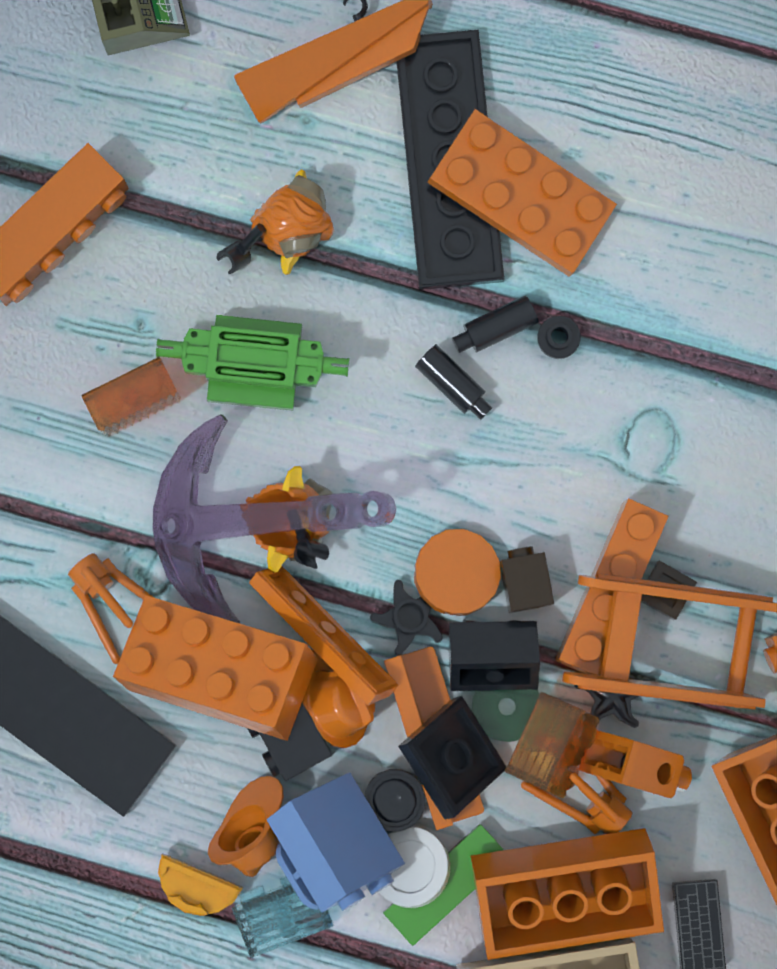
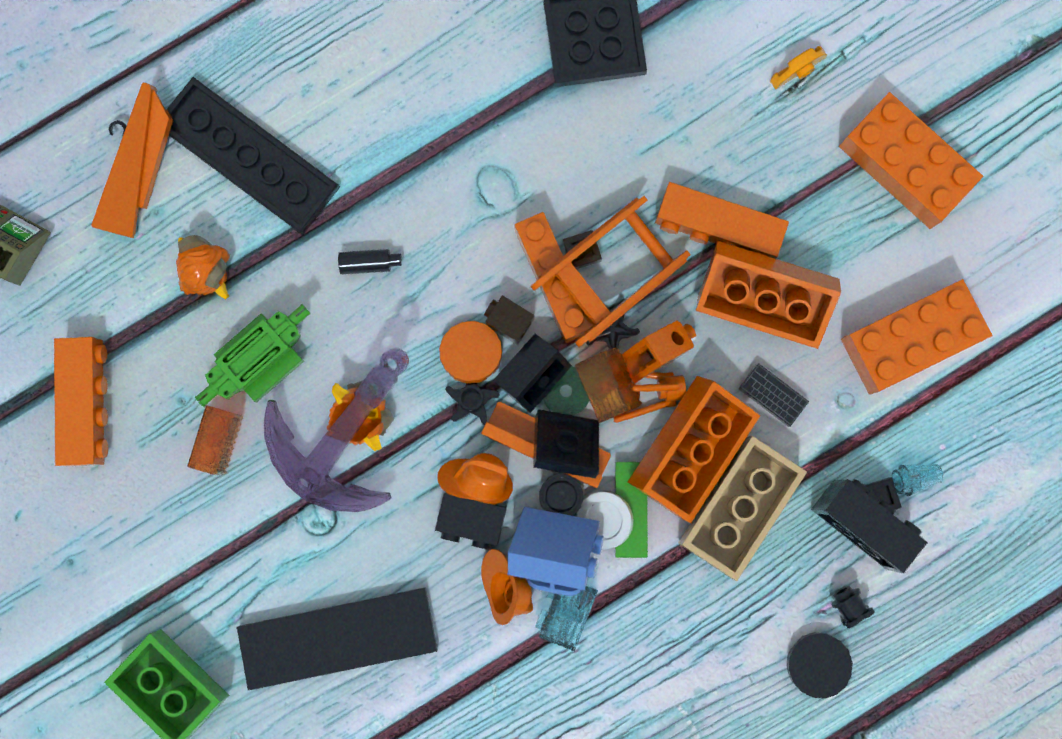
camera: 40 degrees left, 0 degrees up
(93, 578) = (294, 551): orange plant -> none
(195, 889) = (511, 647): light orange plate -> none
(216, 667) = (401, 527): orange brick -> none
(239, 250) = (191, 311): black hand -> none
(308, 550) = (384, 419): black hand -> none
(324, 635) = (437, 453): orange tile -> none
(496, 325) = (359, 211): black cylinder -> none
(522, 193) = (300, 133): orange plate -> none
(555, 350) = (398, 193): black plate -> none

